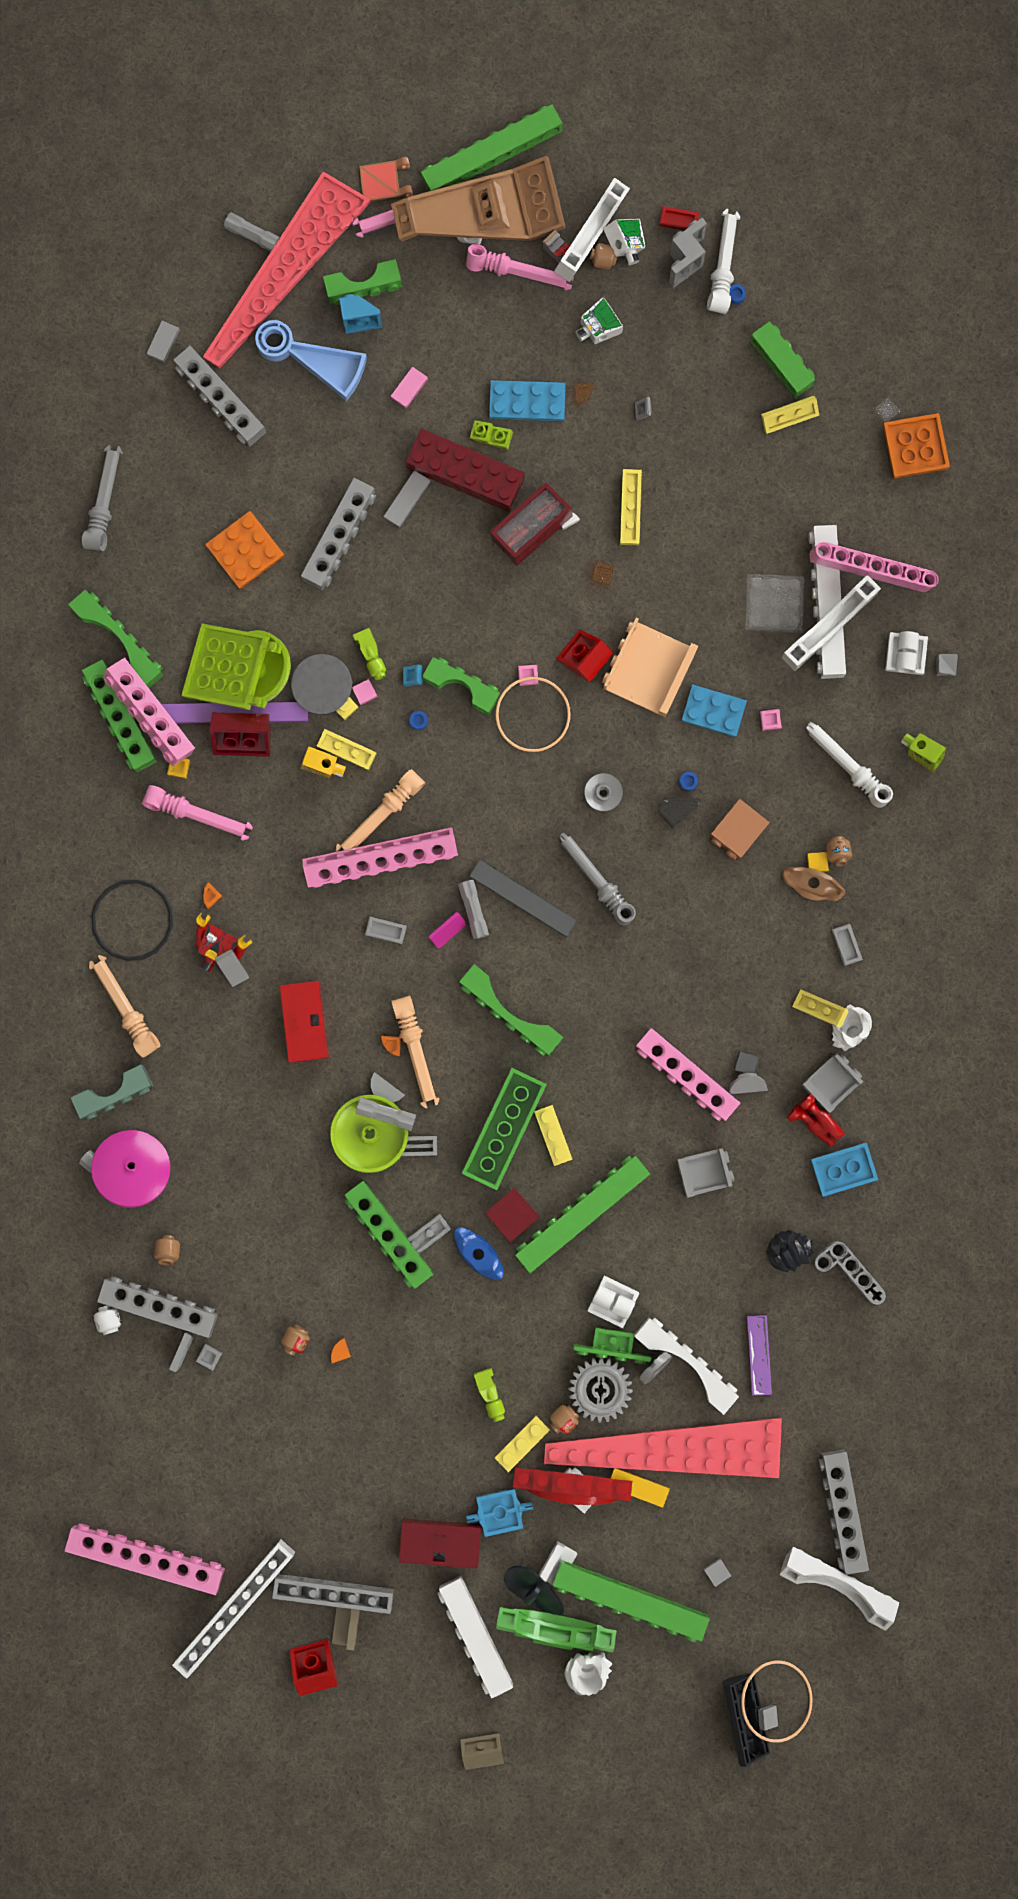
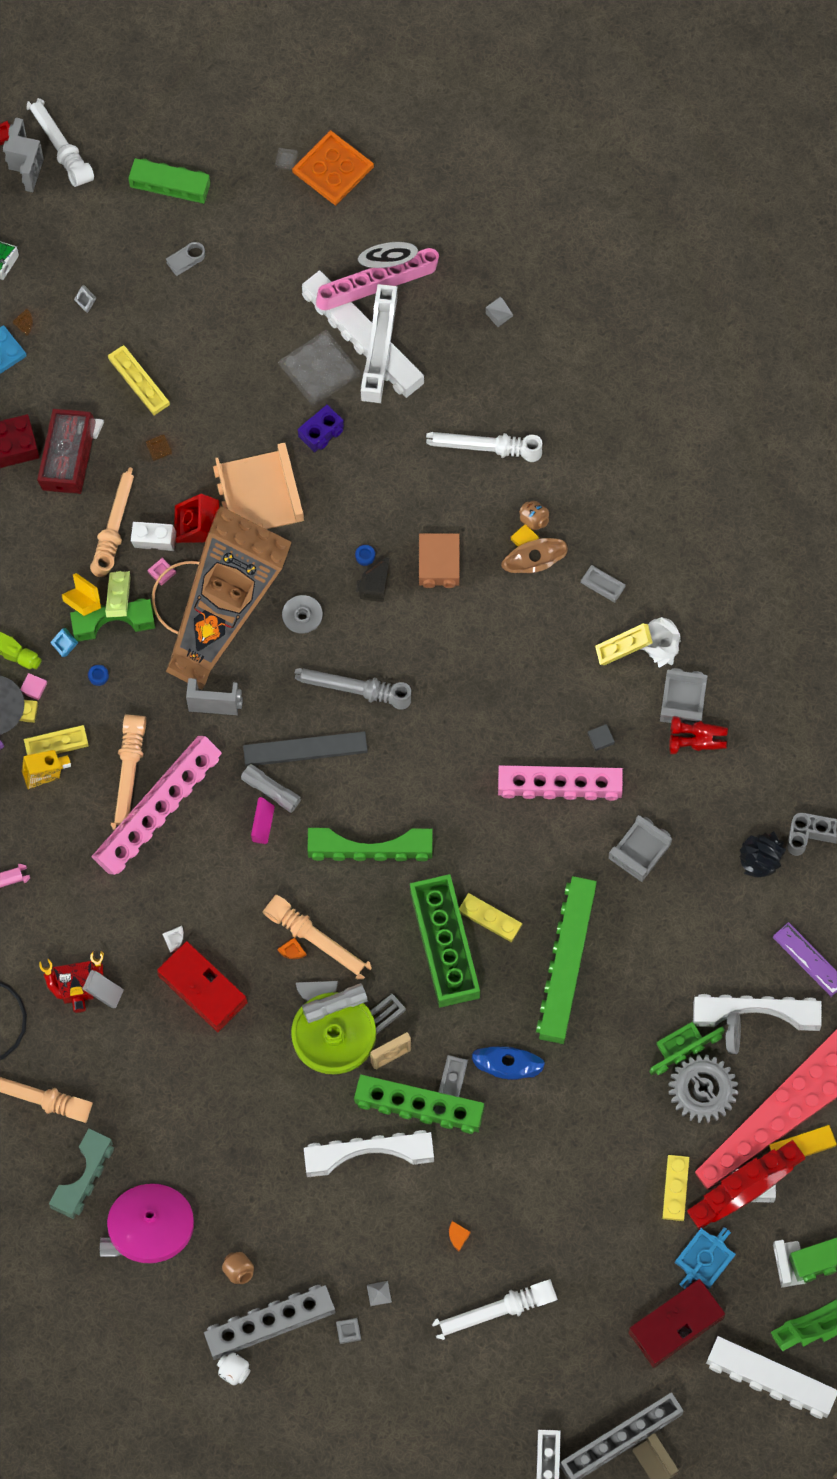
camera: 40 degrees left, 15 degrees down
(182, 1351) = (321, 1343): light grey tile -> none
(210, 895) = (35, 948): orange tile -> none
(252, 1347) = (379, 1293): none -> light grey slope
(295, 1340) = (411, 1254): medium nougat head -> none
(314, 968) = (174, 938): none -> white tile
(358, 1264) = (325, 1158): none -> white arch
(361, 1443) = (512, 1303): none -> white piece
(386, 930) = (210, 862): light grey tile -> none
(404, 1182) = (390, 1051): none -> tan tile
(451, 651) = (84, 596): none -> yellow panel
(473, 803) = (213, 701): none -> light grey panel
(479, 670) = (118, 594): none -> yellowish green plate
(488, 1391) = (612, 1166): lime piece -> none
(510, 618) = (109, 538): none -> light nougat piece
(512, 1215) = (509, 1007): dark red tile -> none
(532, 1589) = (786, 1298): black shield -> none
(542, 643) = (153, 536): none -> white brick
(564, 1419) = (694, 1137): medium nougat head -> none
(588, 713) = (230, 581): none -> medium nougat wing
(613, 1301) = (653, 1010): white plate -> none
(714, 711) = (340, 485): dark azure plate -> none
(734, 649) = (317, 426): none -> dark purple brick
(737, 293) = (90, 157): blue tile -> none
(740, 433) = (182, 260): none -> light grey piece
(747, 1083) = (615, 751): light grey tile -> none
(770, 719) = (392, 458): bright pink tile -> none
(790, 414) = (210, 216): light yellow plate -> none
(844, 1169) = (751, 758): dark azure plate -> none
(898, 553) = (387, 254): none -> white sticker
(906, 653) = (459, 326): white plate -> none
(930, 754) = (538, 387): lime torso -> none

